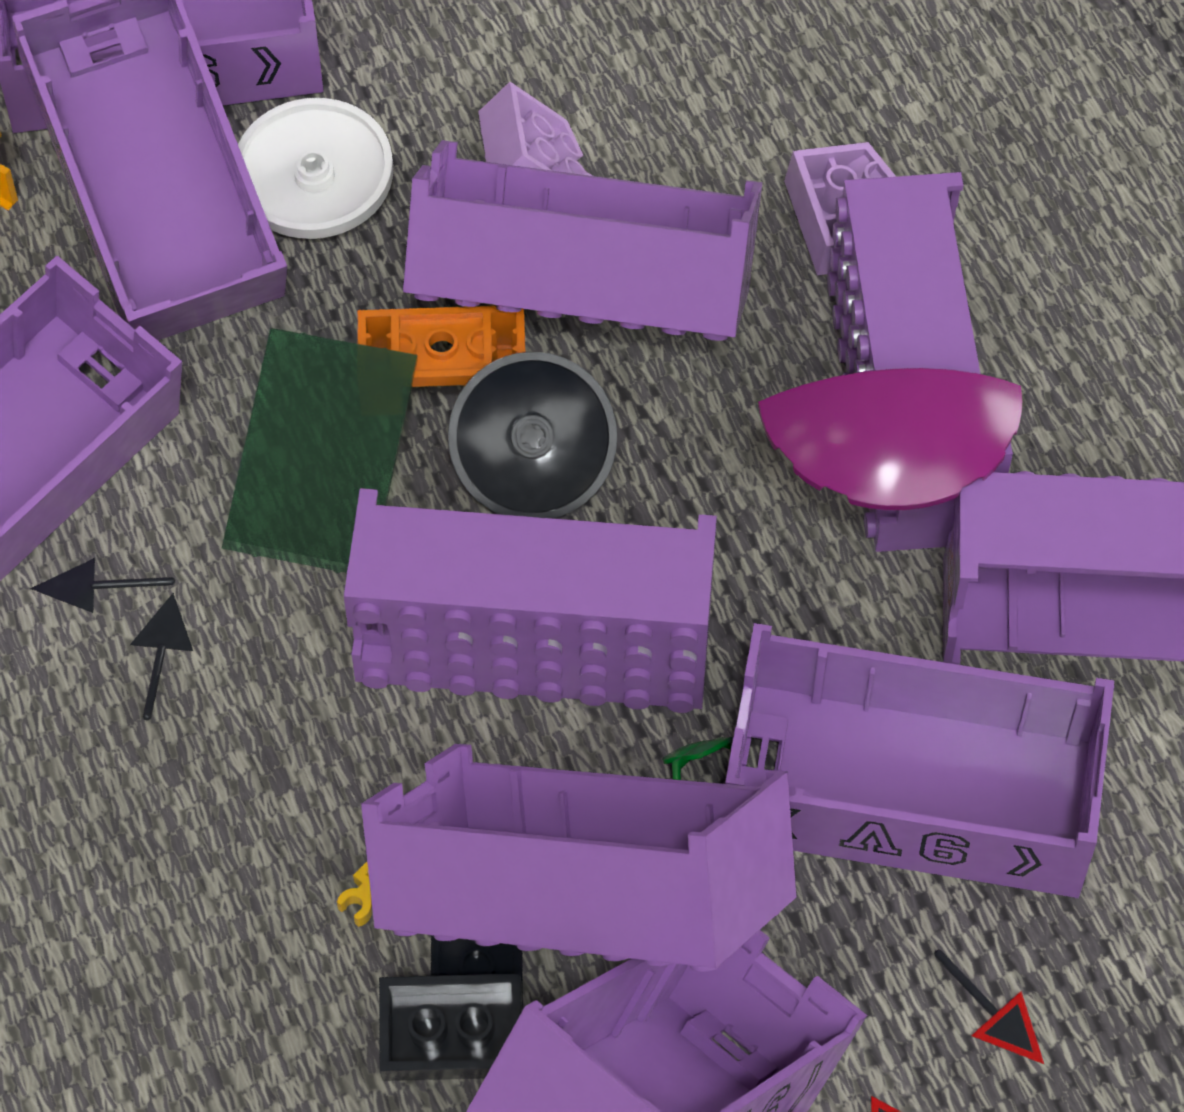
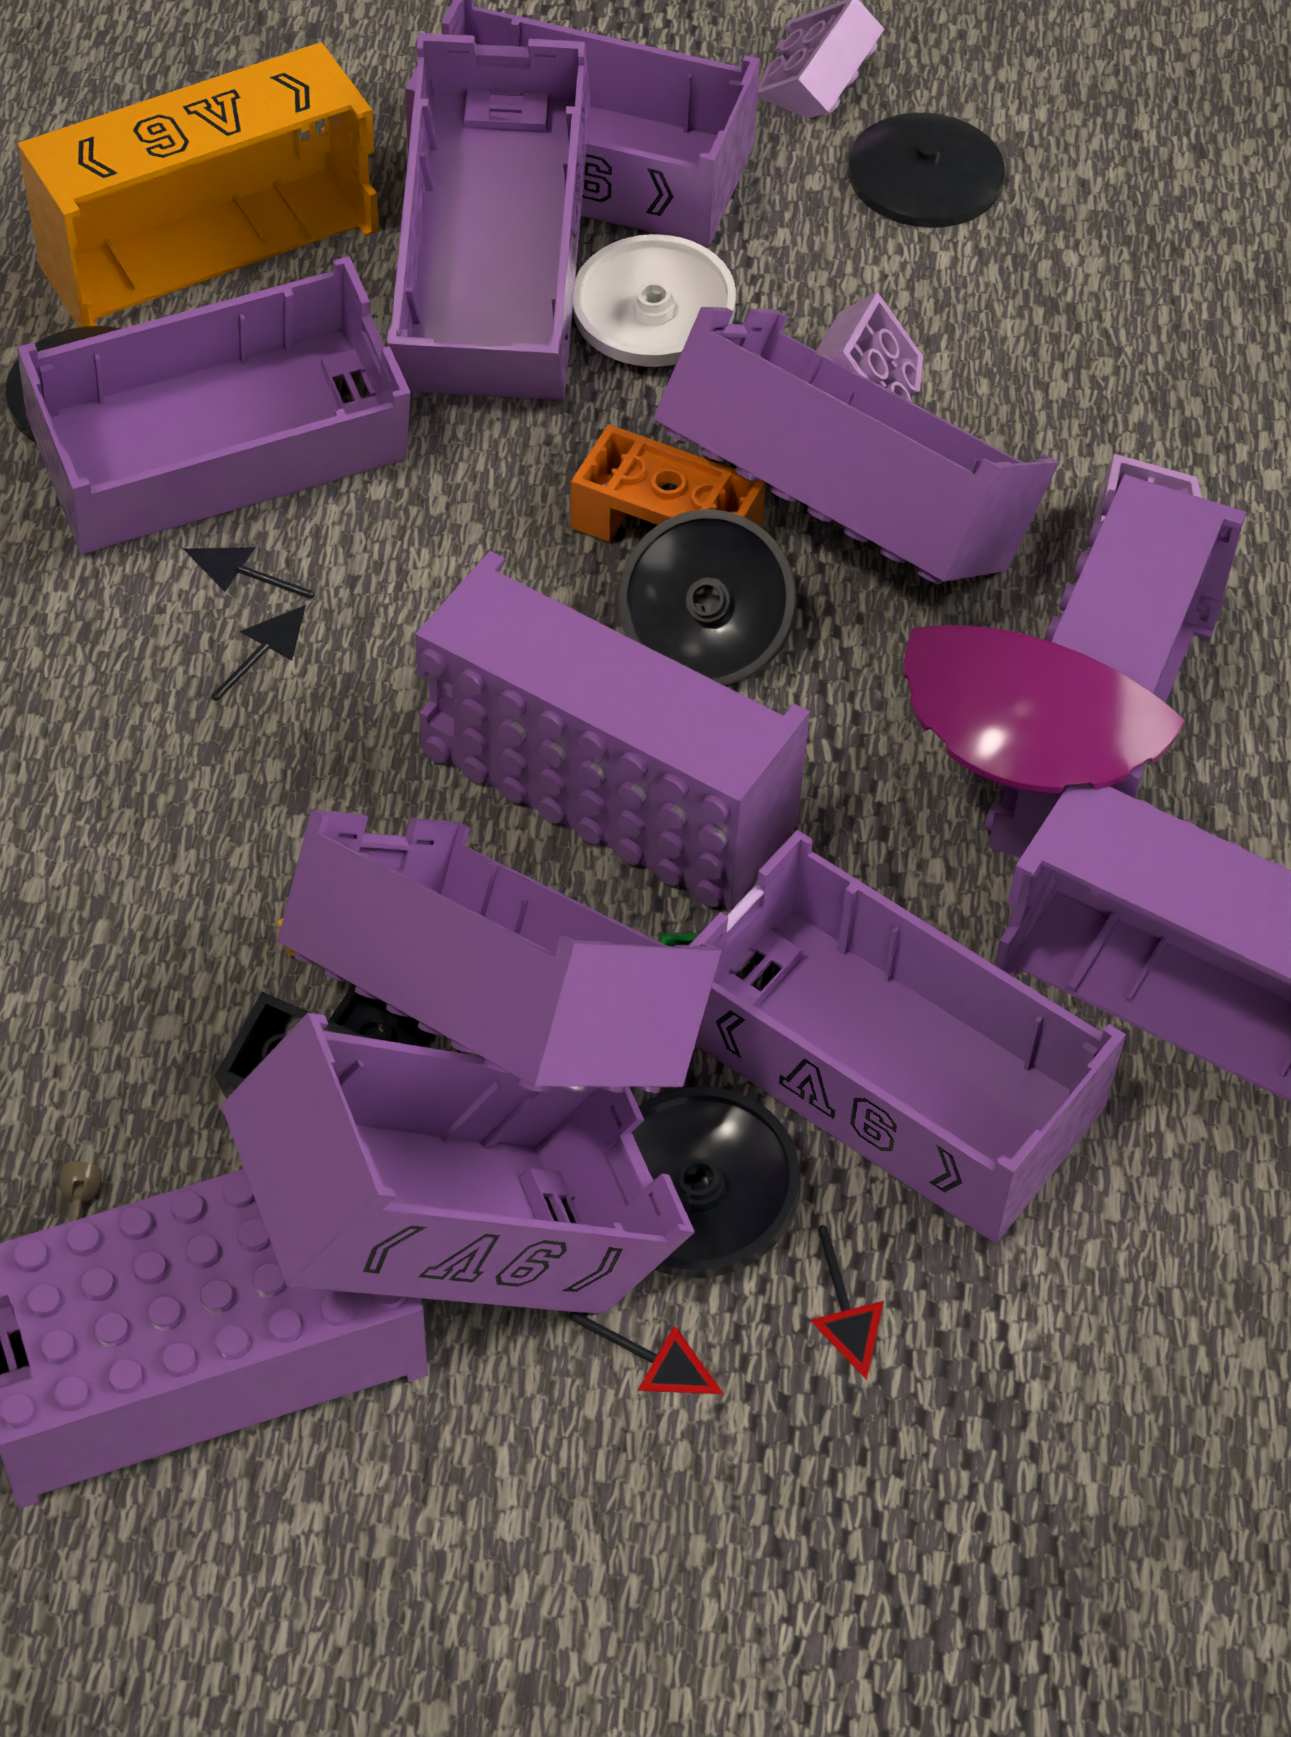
camera: 25 degrees right, 5 degrees down
(316, 434) = (520, 496): clear green piece -> none
(854, 943) = (730, 1172): none -> black dish

